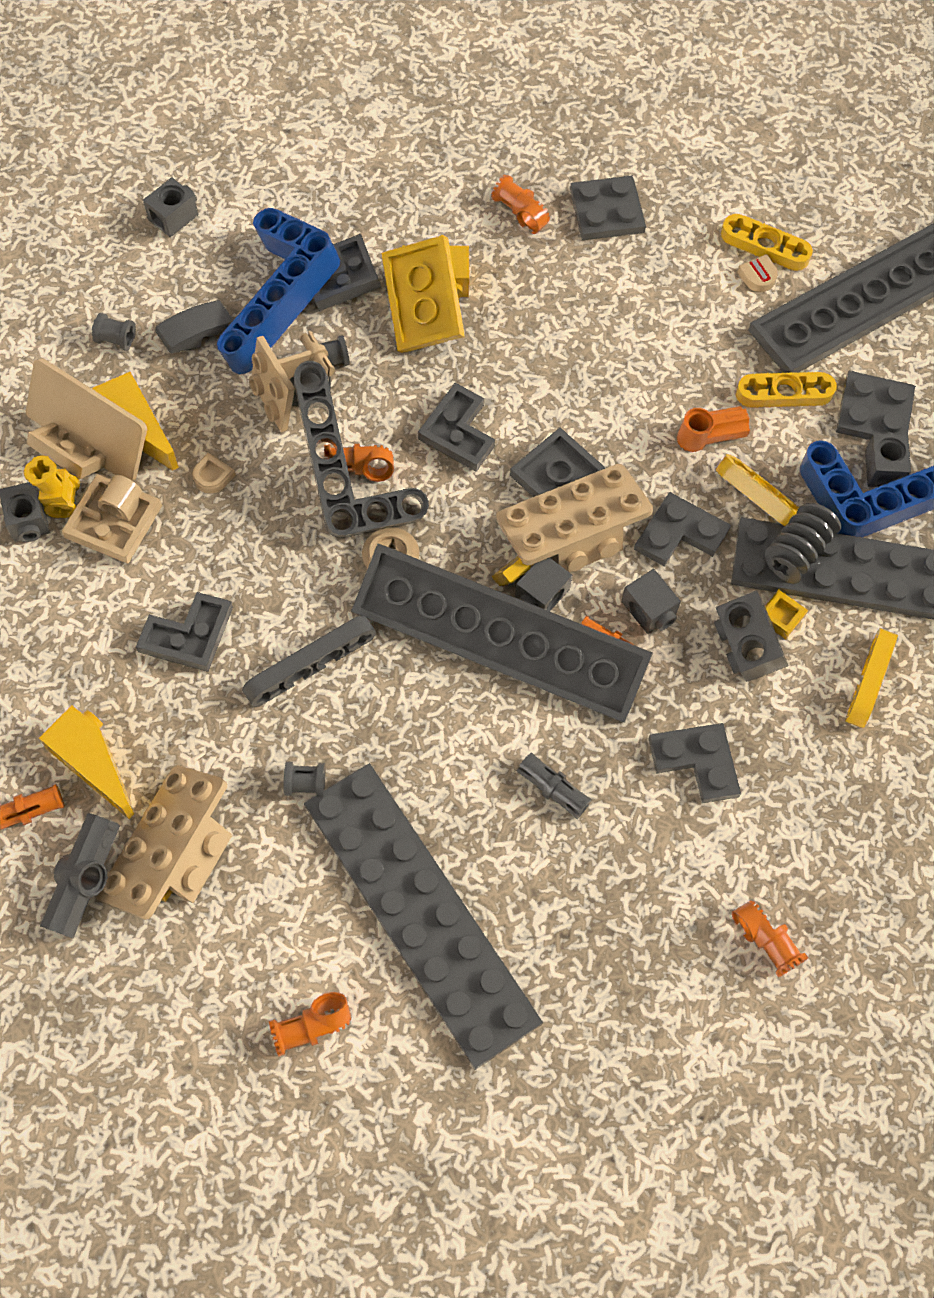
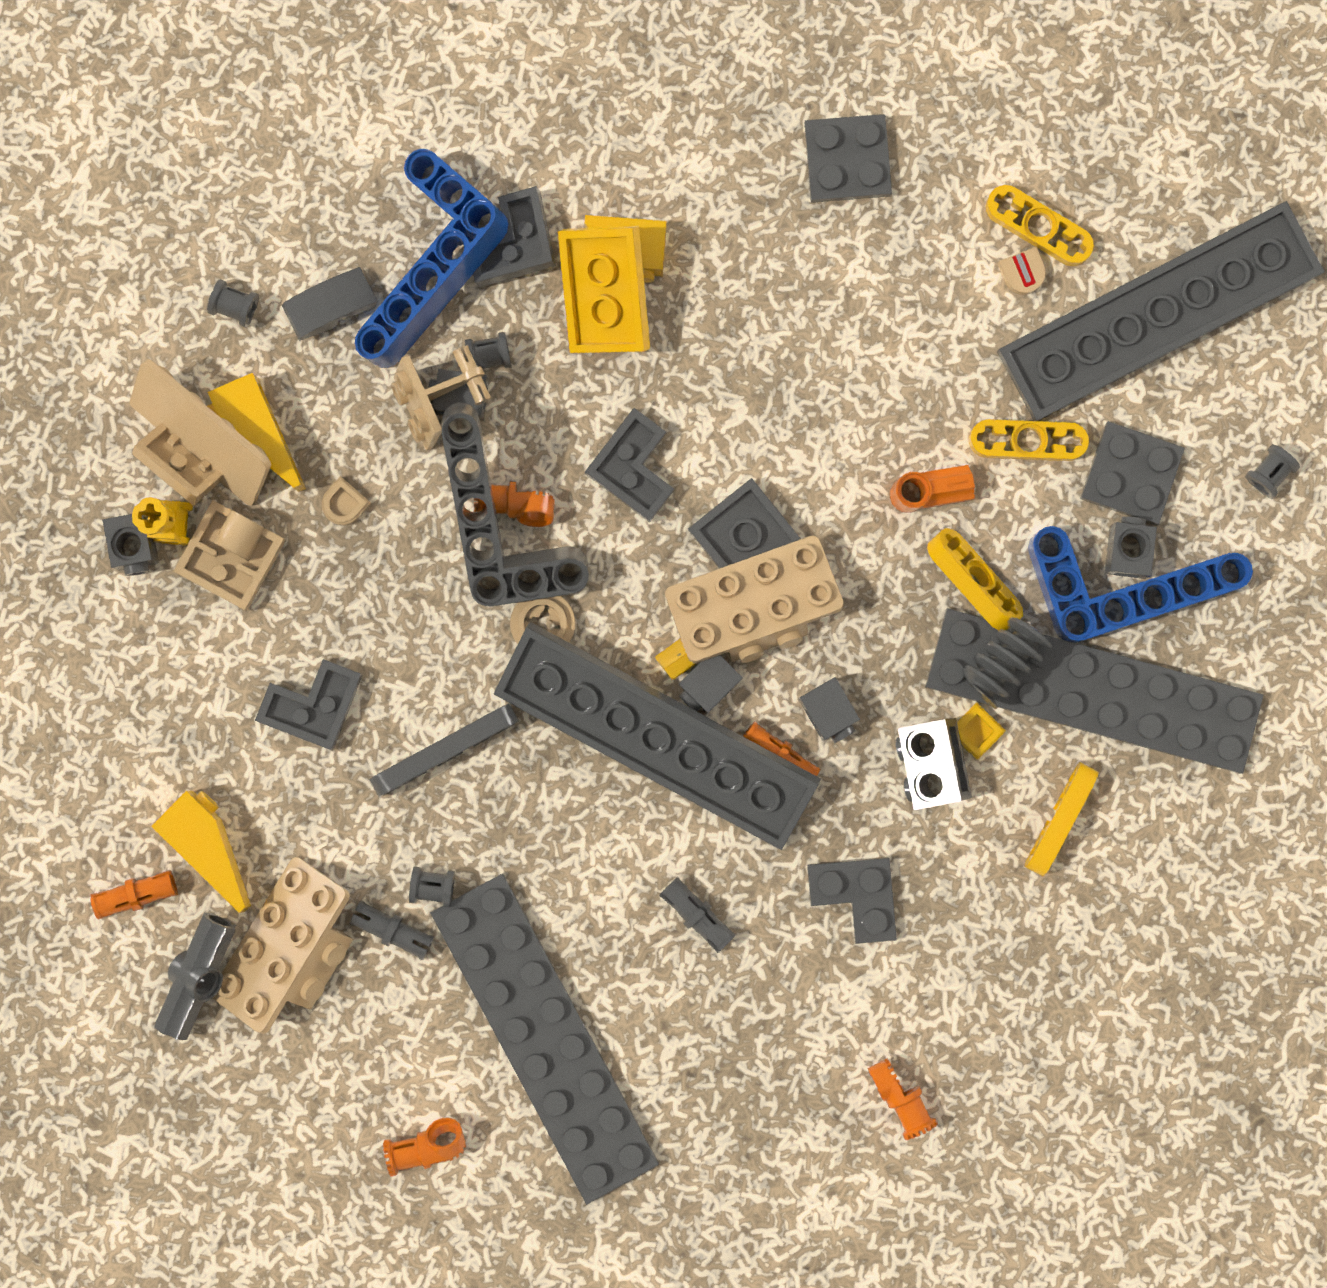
camera: 10 degrees right, 20 degrees up
(171, 206) = (287, 124): dark grey brick -> none
(268, 822) = (391, 930): none -> dark grey pin
(521, 203) = (737, 144): orange connector -> none
(680, 521) = (876, 605): dark grey plate -> none

